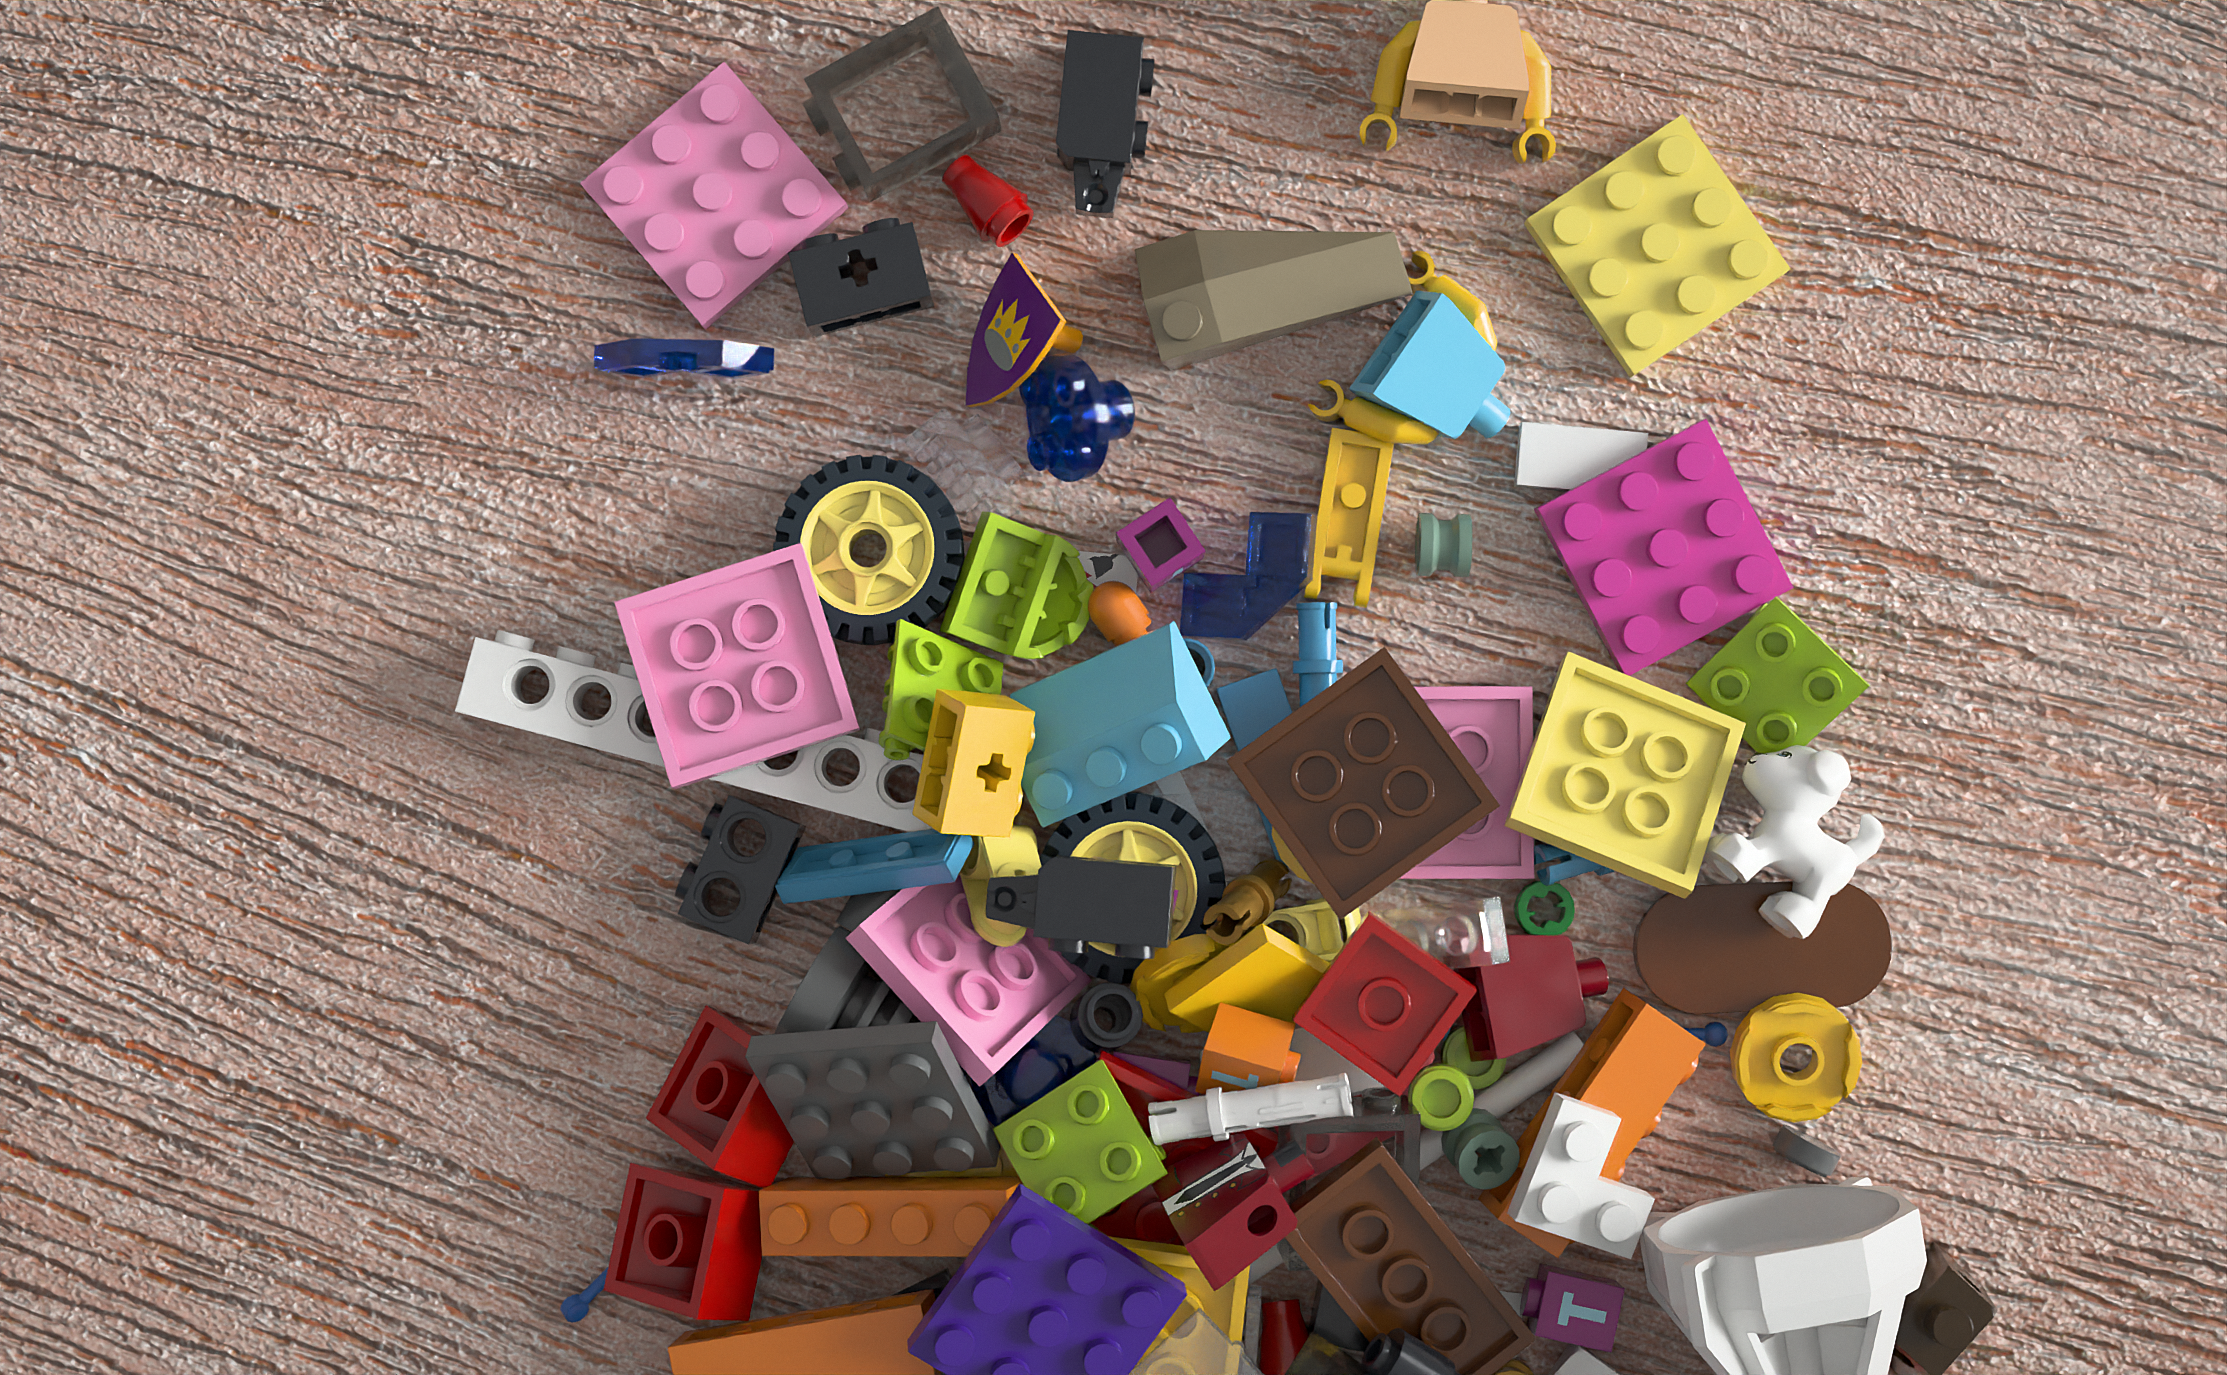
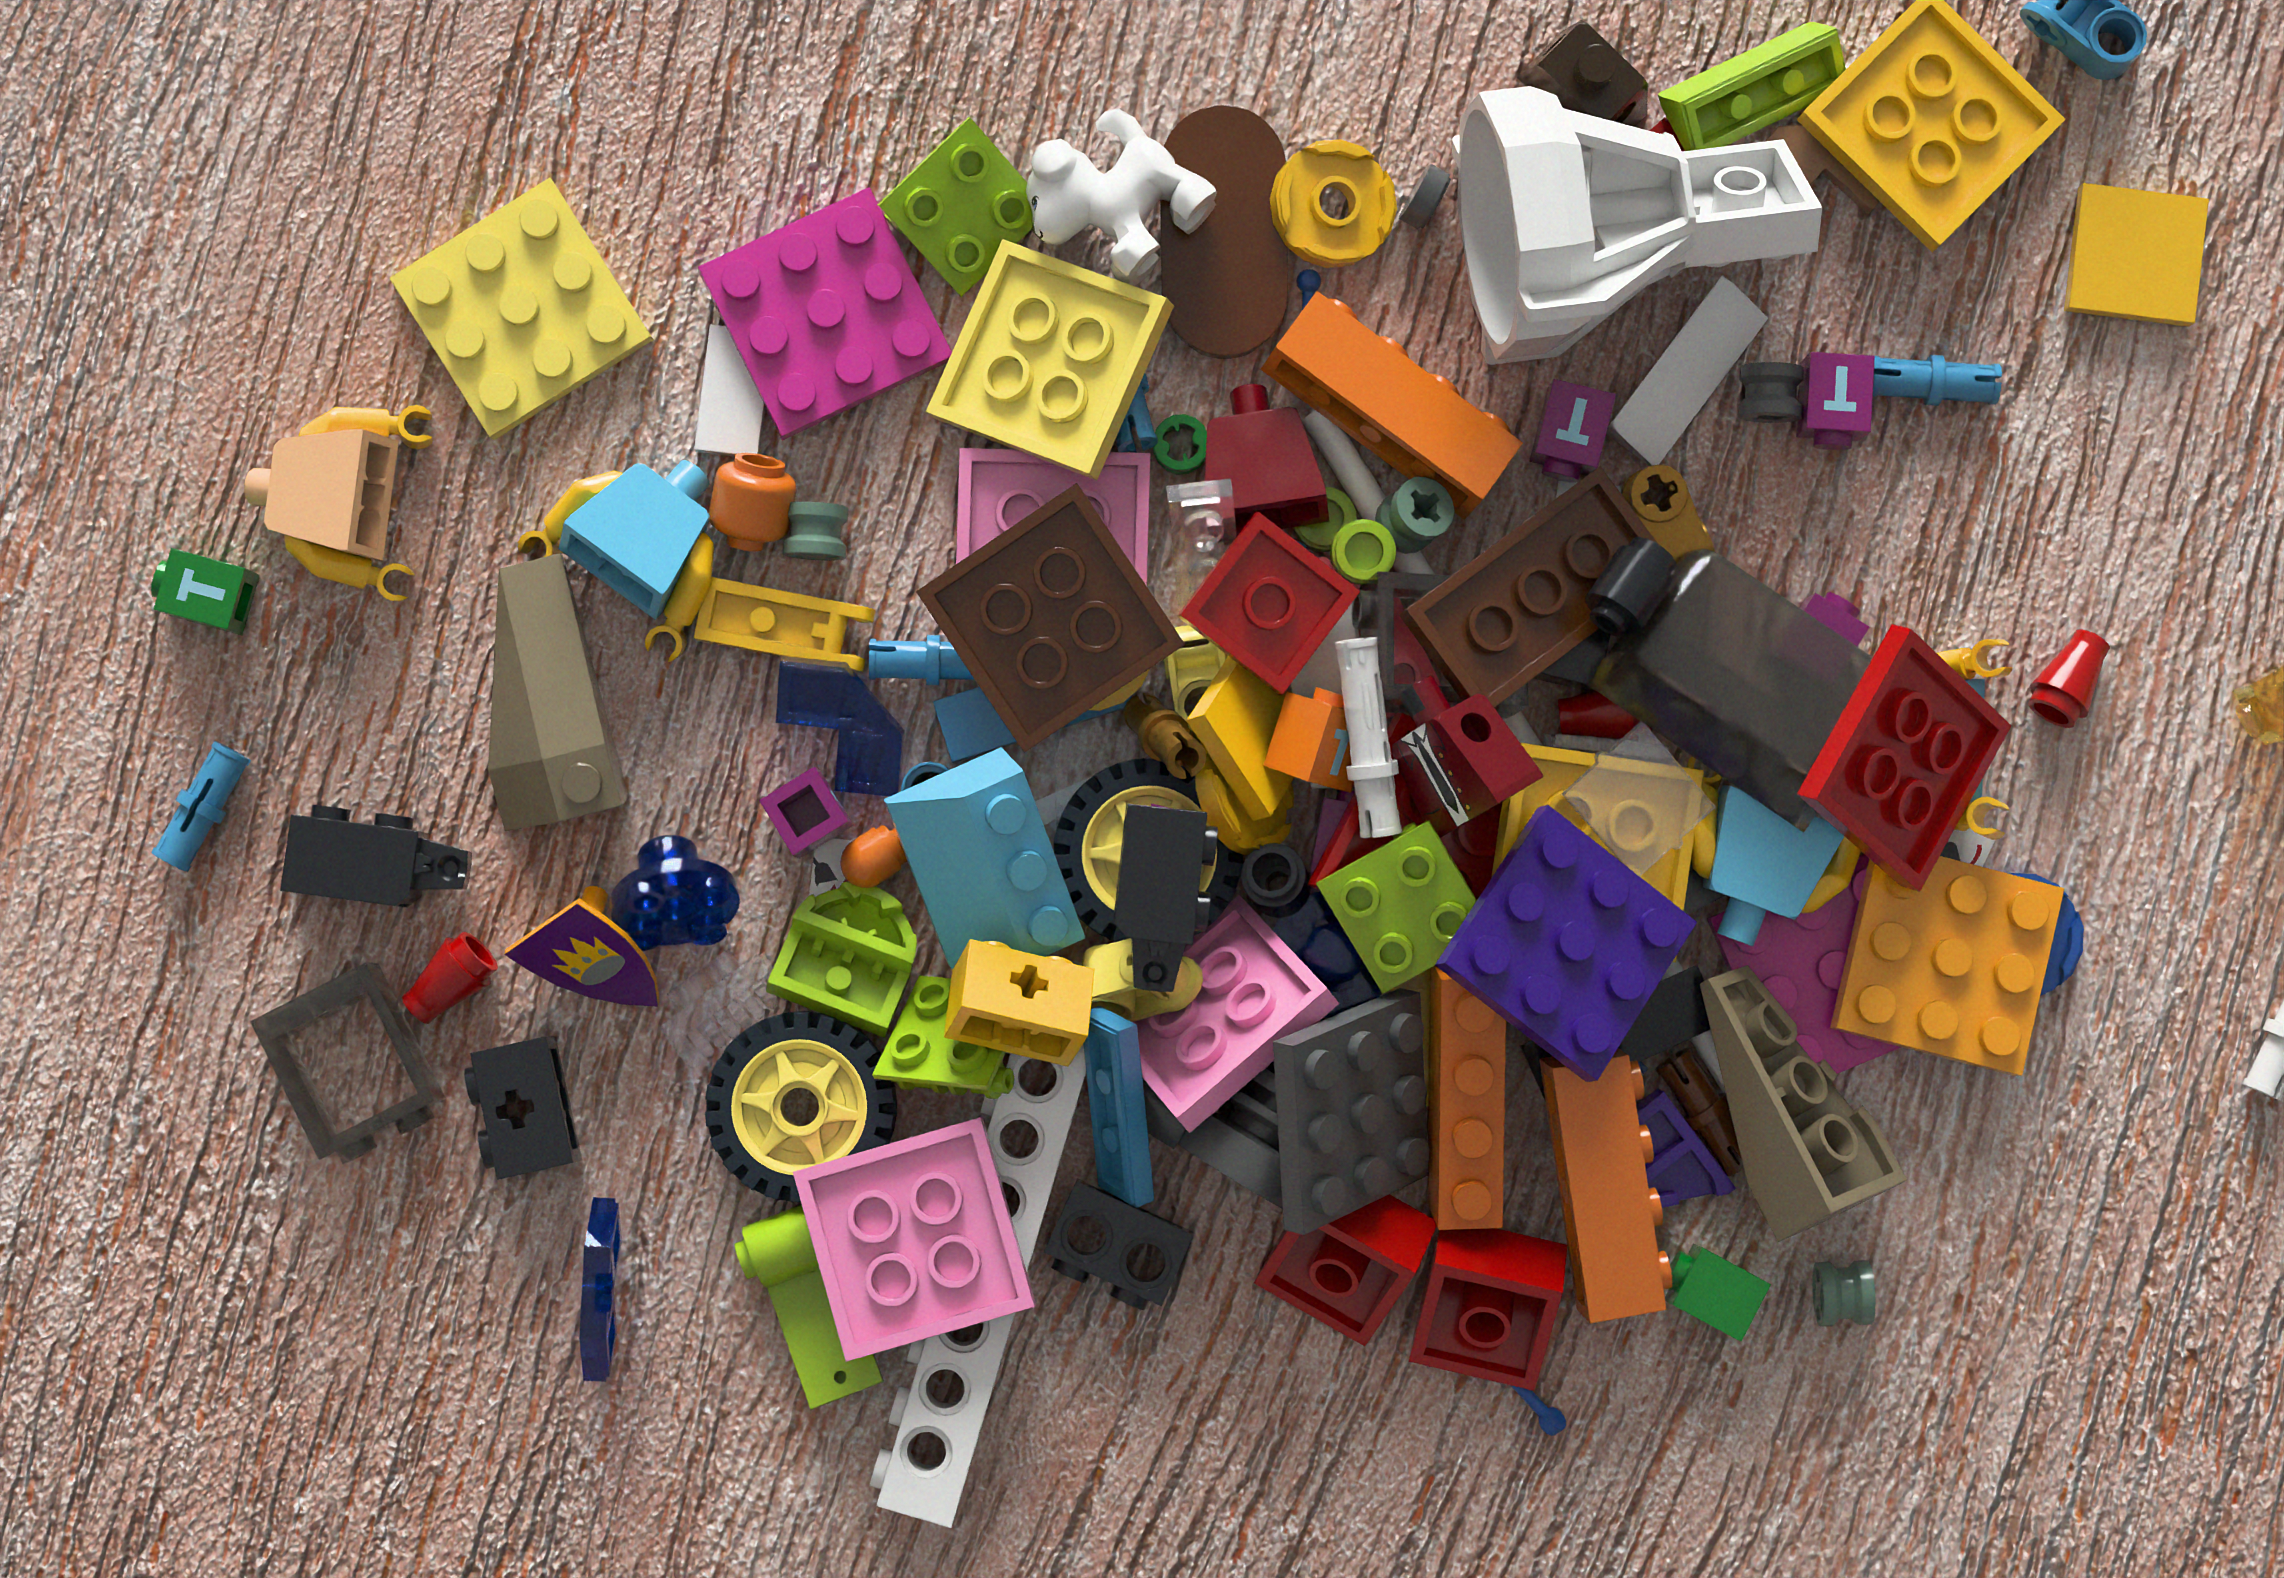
camera: 90 degrees left, 0 degrees up
(714, 195) = (433, 1256): bright pink plate -> none
(716, 537) = (786, 1264): none -> lime door
(1471, 481) = (752, 501): none -> orange head
(1563, 1183) = (1452, 433): white plate -> none

